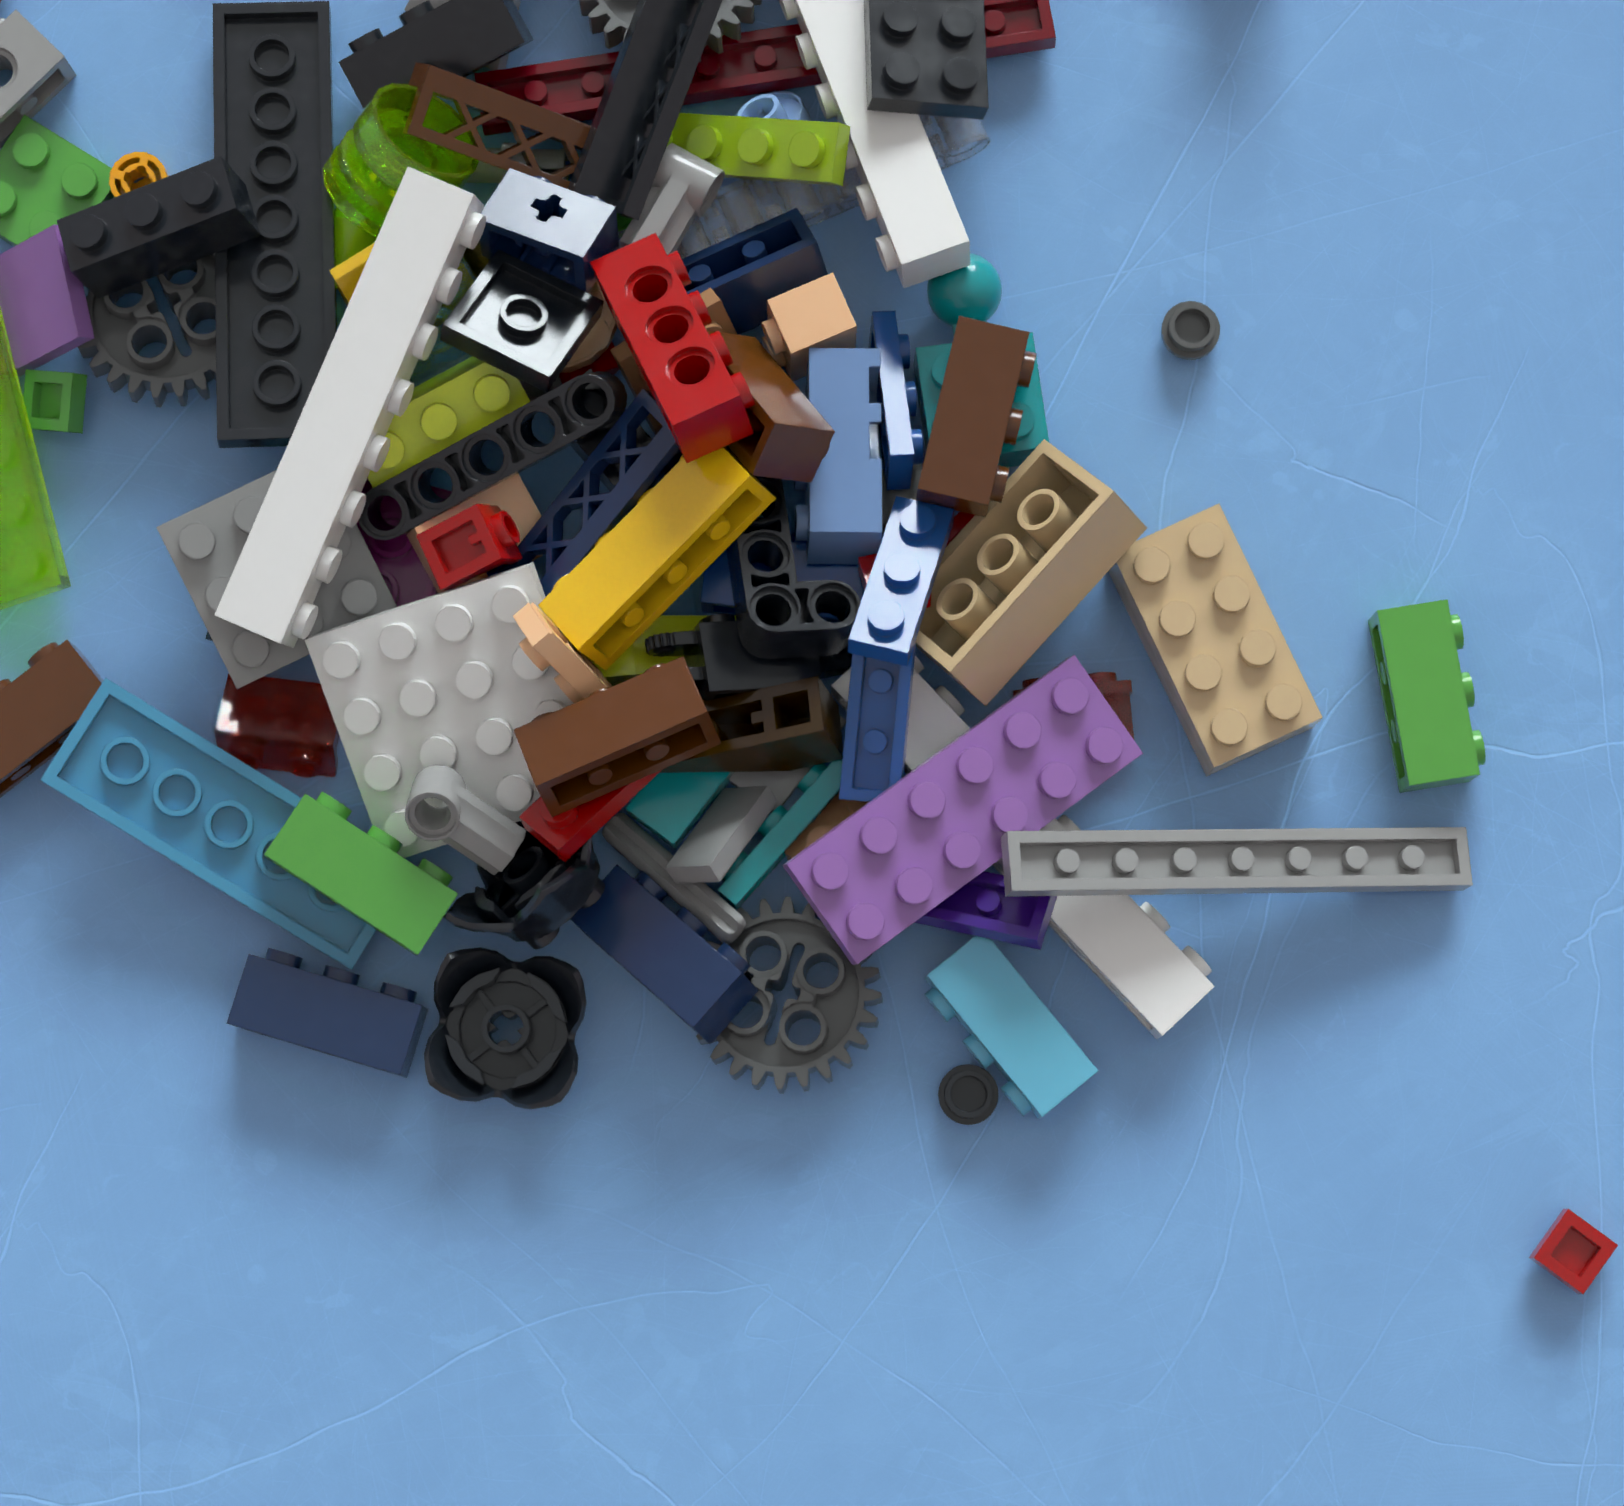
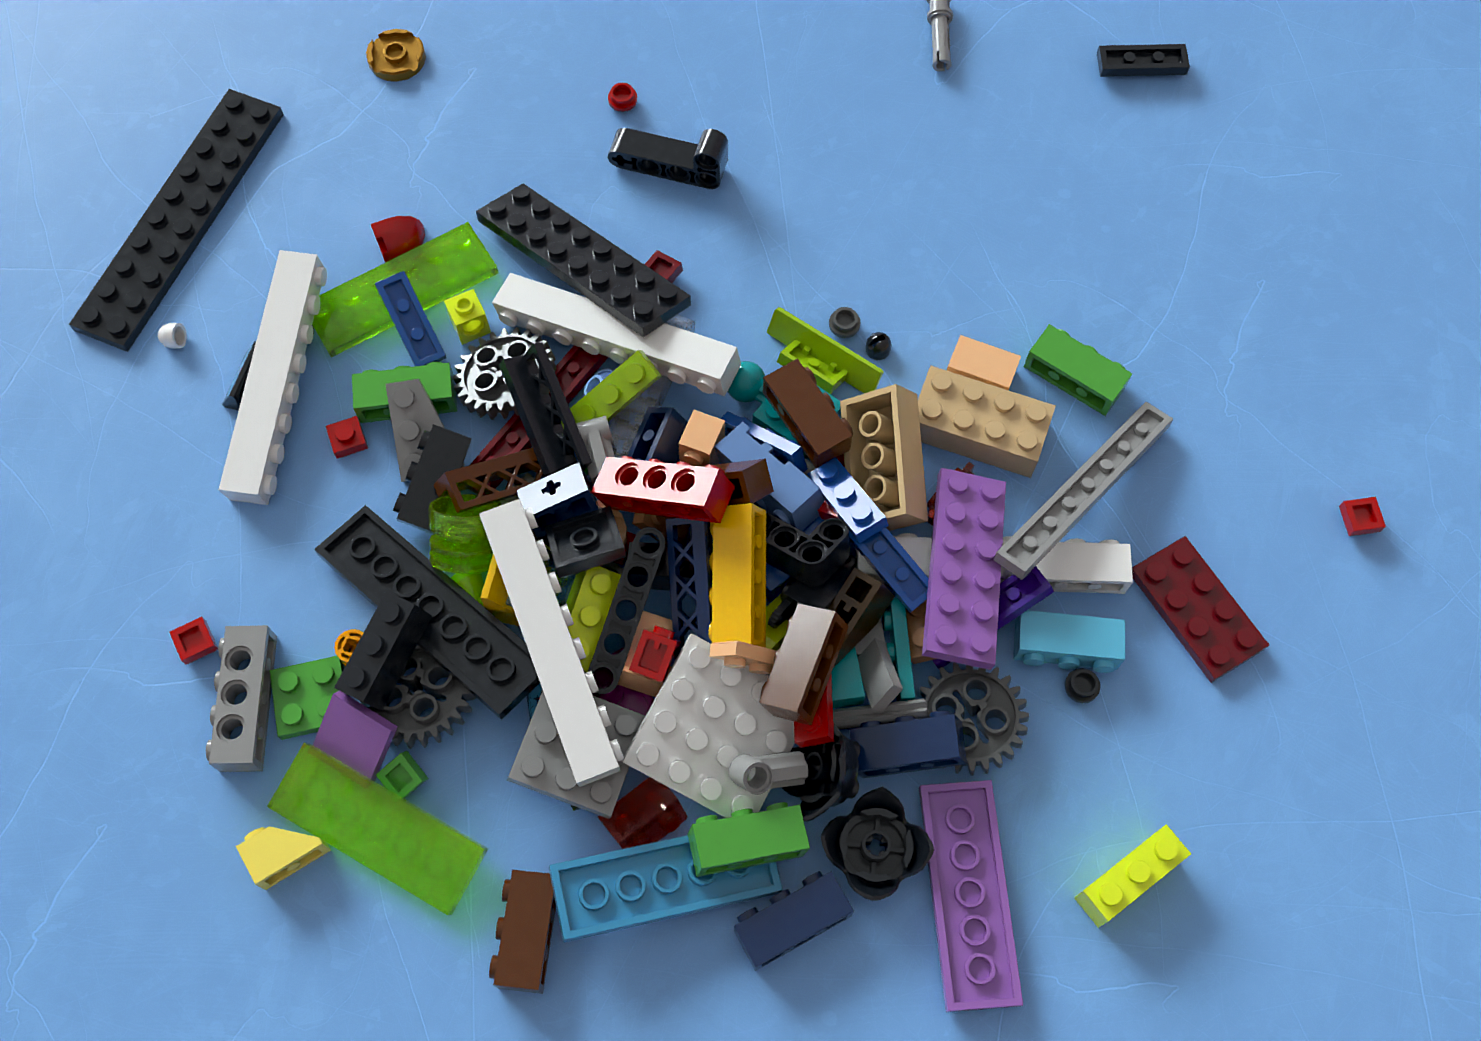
camera: 45 degrees left, 15 degrees down
(561, 1191) = (970, 897): none -> medium lavender plate
(768, 1364) = (1132, 876): none -> neon yellow brick
(1096, 349) = (822, 355): none -> lime bracket
(1199, 416) = (882, 349): none -> black hinge
(1224, 1149) = (1198, 609): none -> dark red plate
(1298, 571) = (983, 362): none -> light nougat brick

